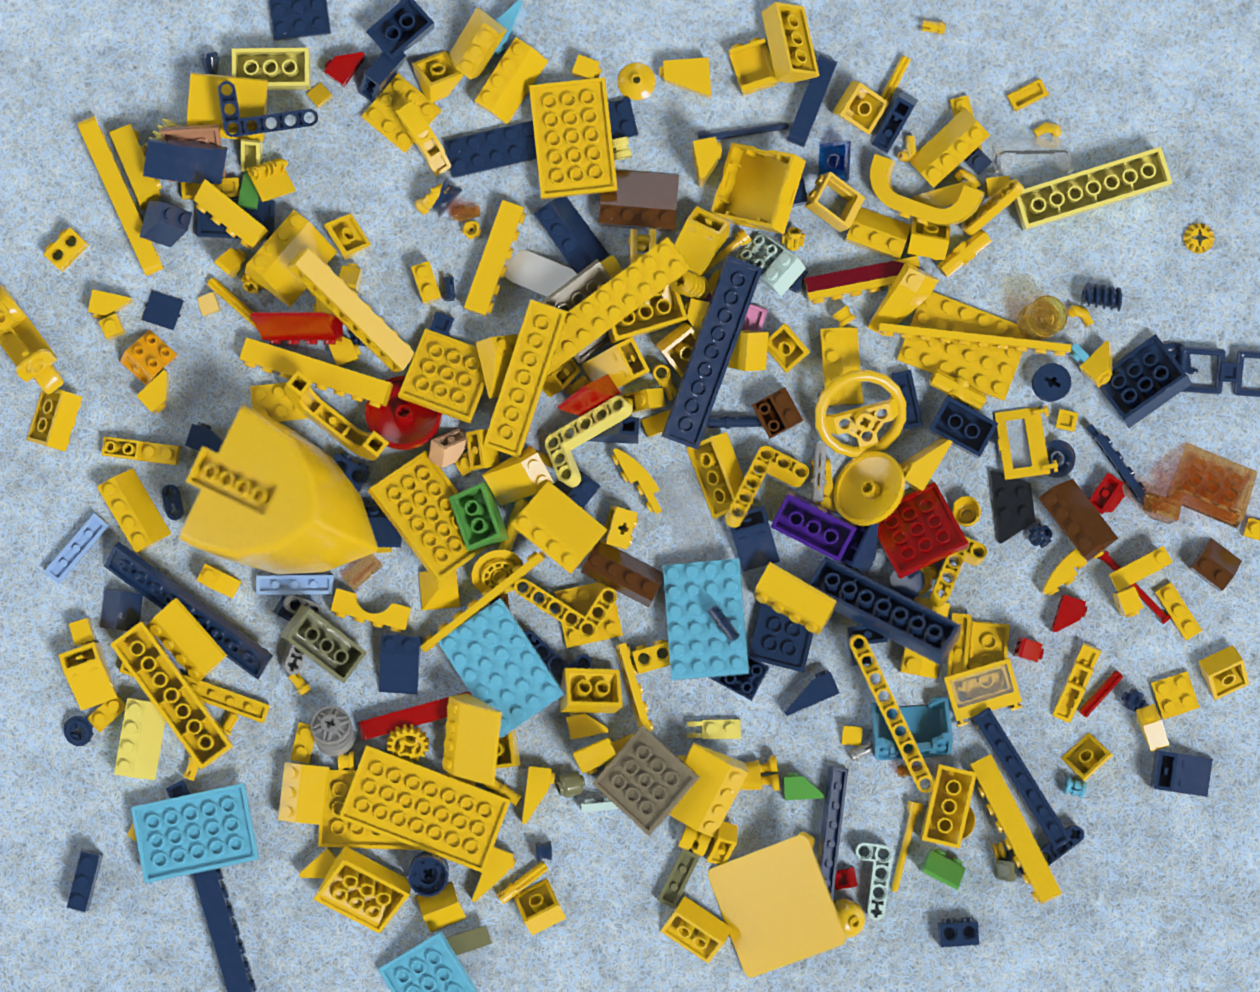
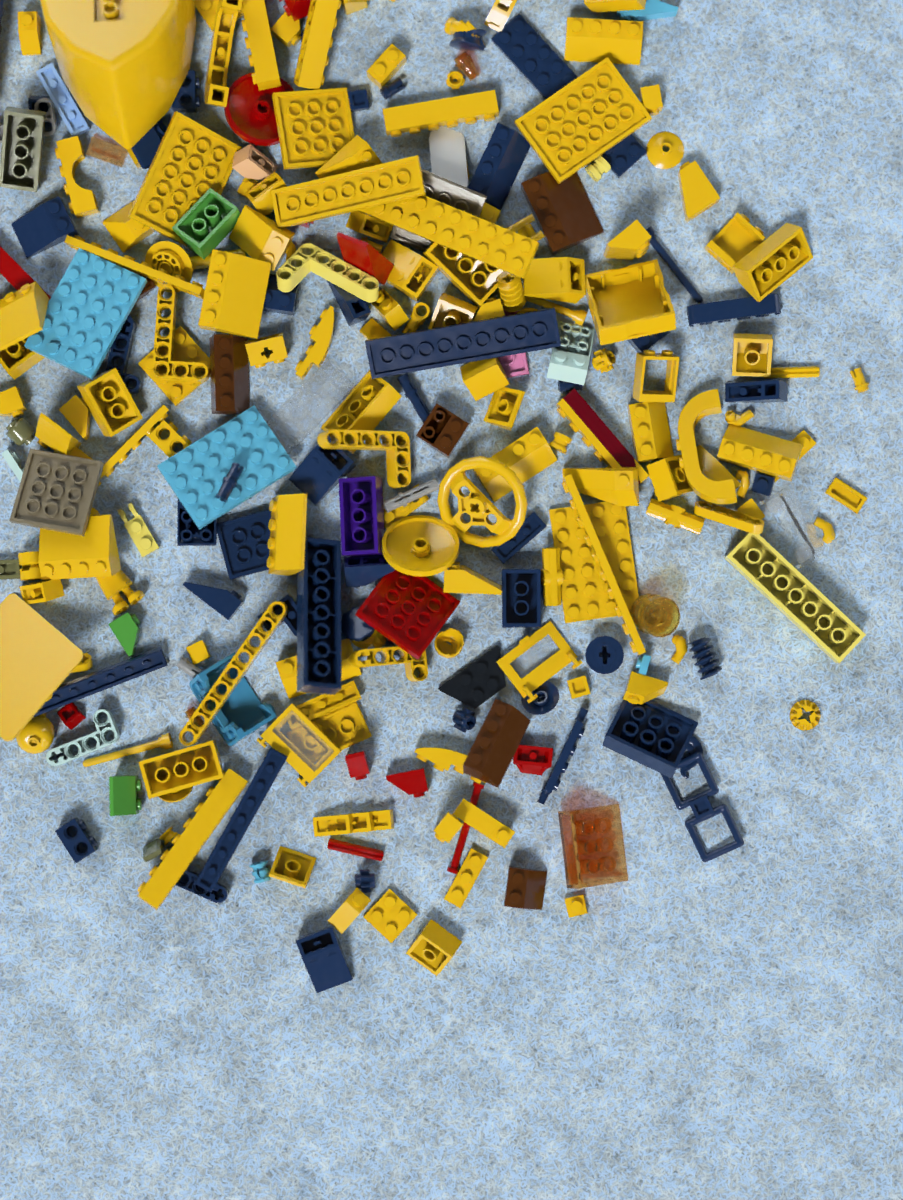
camera: 65 degrees right, 0 degrees up
(835, 158) = (694, 359): clear blue slope -> none
(1161, 508) = (547, 811): clear orange slope -> none

